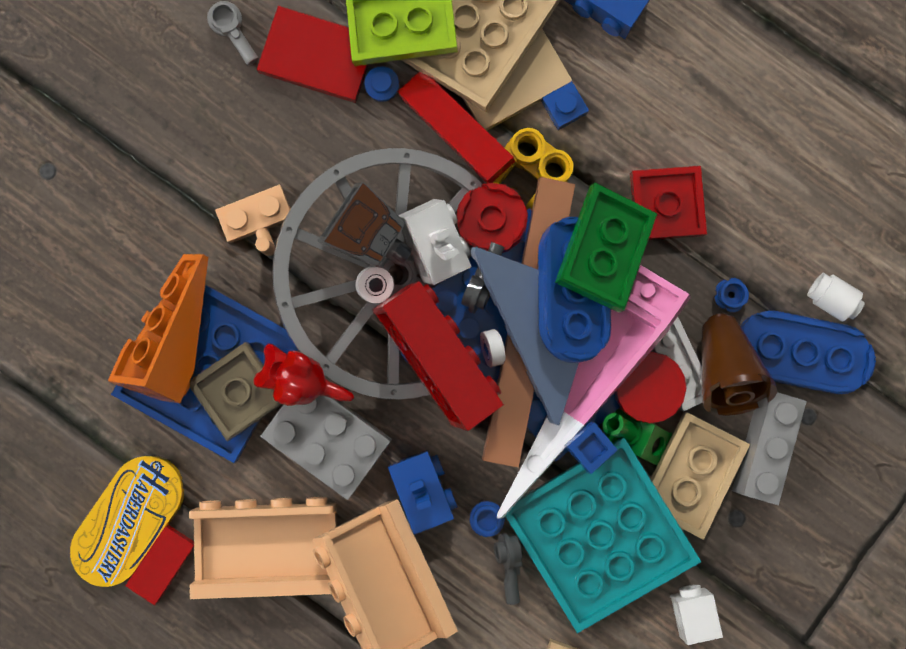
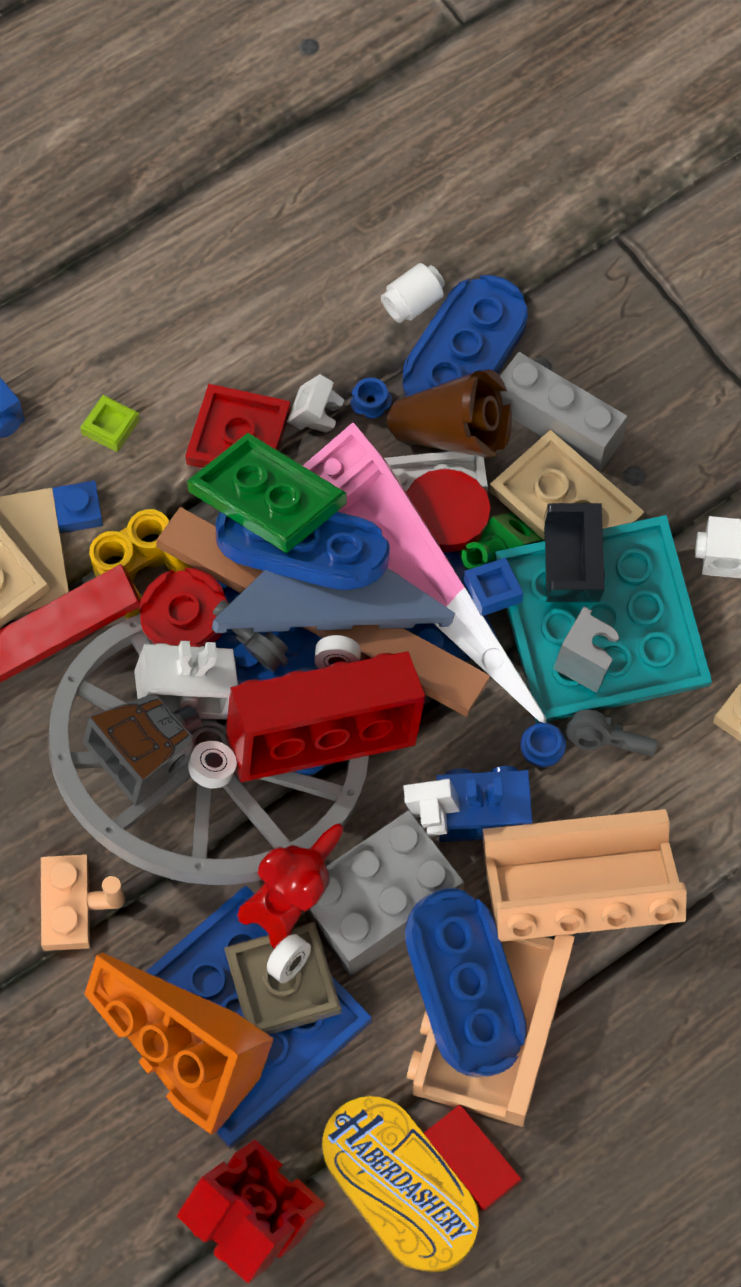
camera: 65 degrees left, 20 degrees down
(59, 429) = (250, 1211): none -> red brick
(243, 392) = (288, 958): none -> white tile
(274, 524) = (465, 983): none -> blue tile
(395, 459) = (432, 803): none -> white tile
(558, 533) = (580, 657): none -> light grey hinge
(639, 502) = (574, 552): none -> black panel
(642, 103) = (110, 423): none -> lime tile
(710, 250) = (310, 404): none -> white tile

